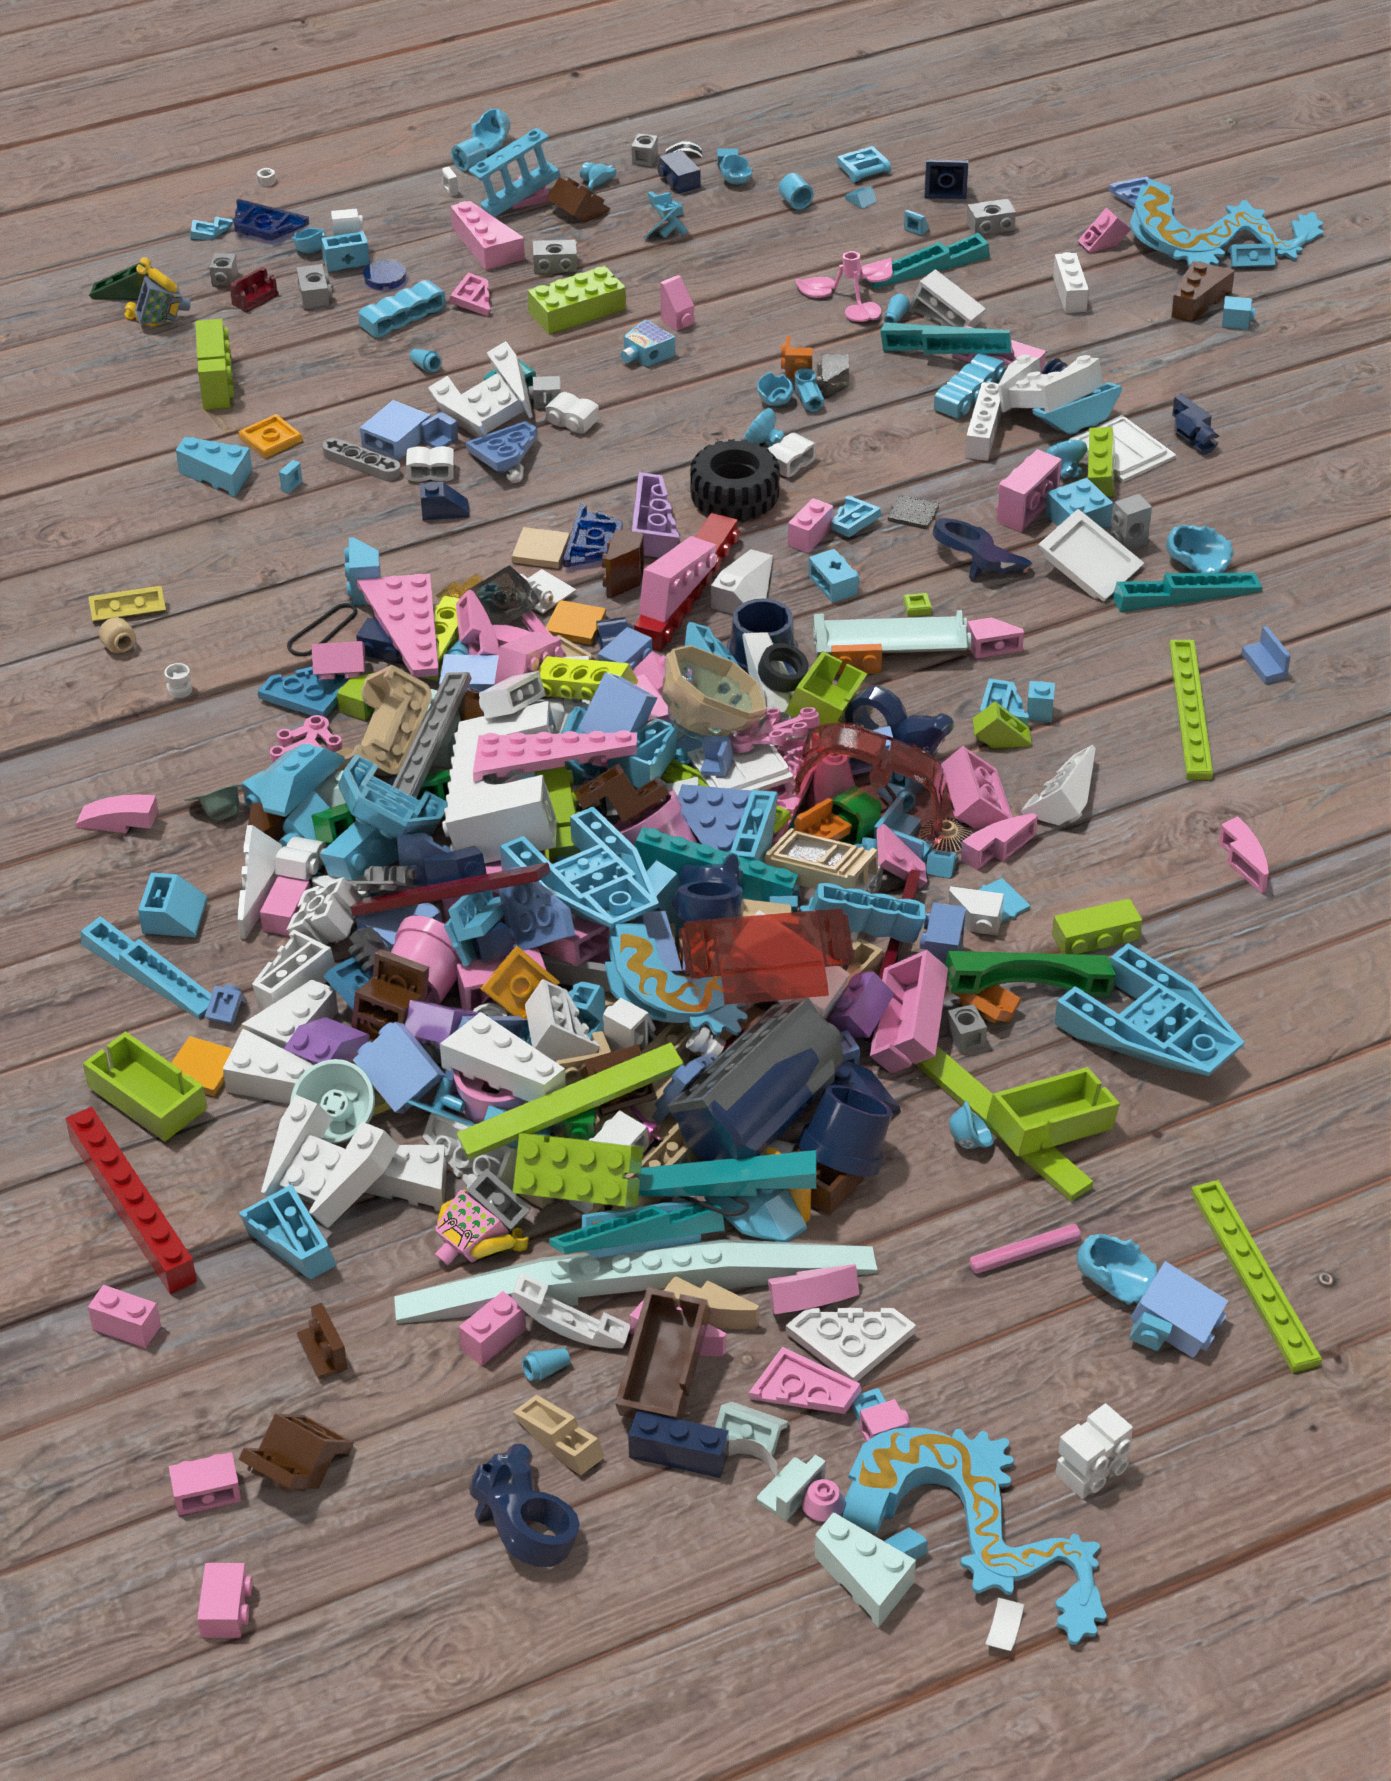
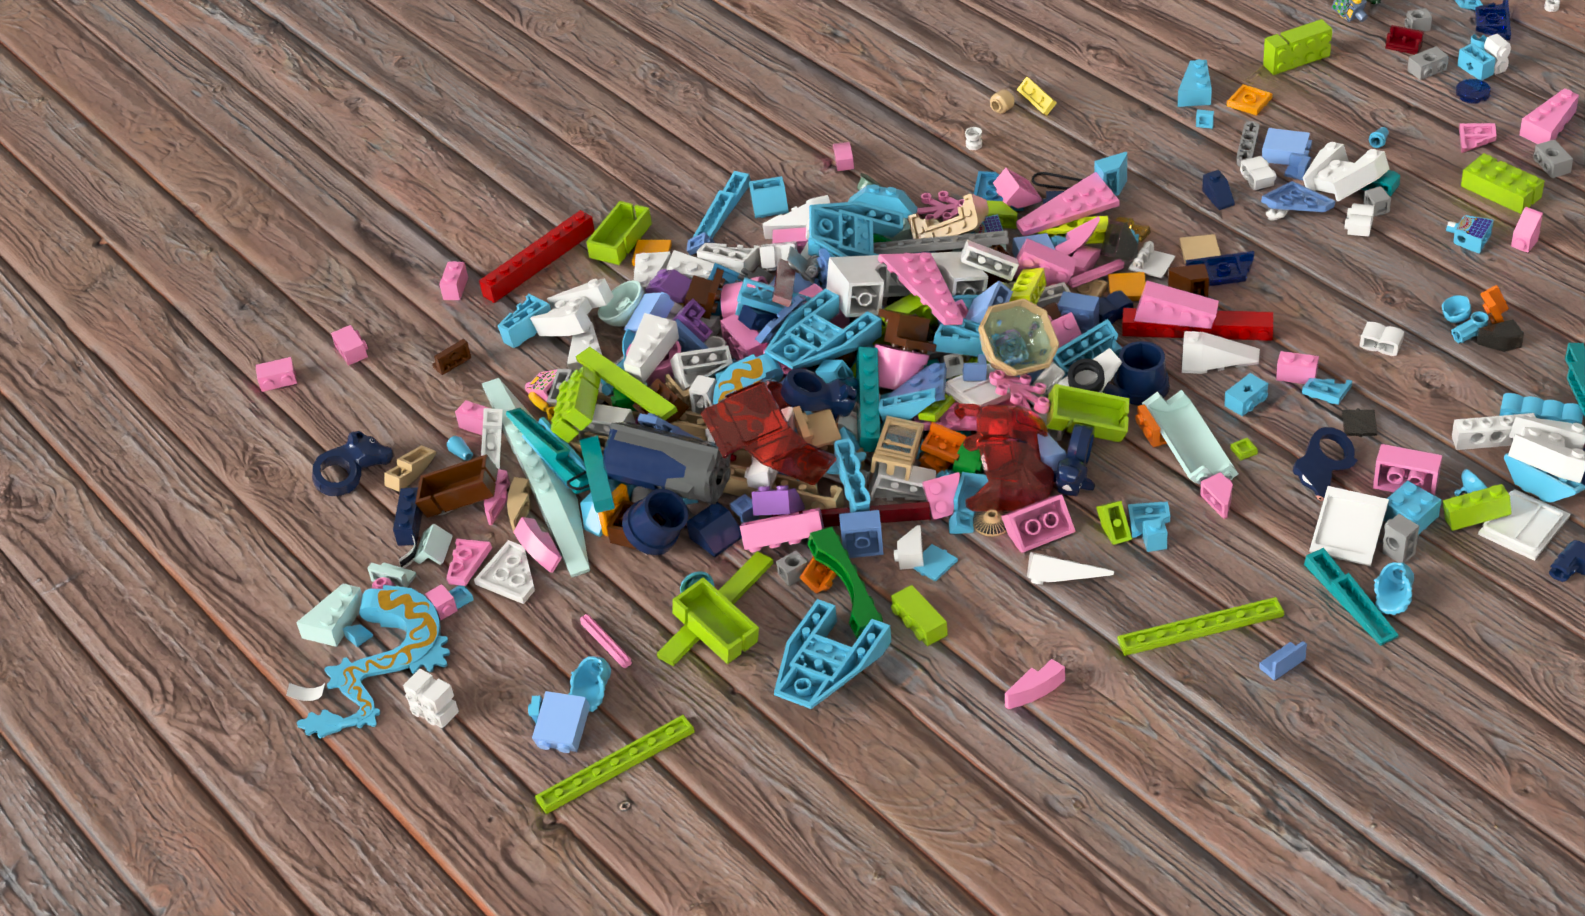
camera: 80 degrees right, 0 degrees up
(295, 1452) = (370, 367): reddish brown bracket -> none
(399, 310) = (1431, 108): medium azure brick -> none
(454, 865) = (813, 282): dark blue slope -> none
(516, 981) = (736, 338): light orange tile -> none
(654, 516) = (1254, 286): lavender wedge -> none
(735, 479) = (1322, 330): black tyre -> none
(764, 429) = (1397, 312): medium azure hair -> none
(998, 840) = (990, 545): bright pink slope -> none

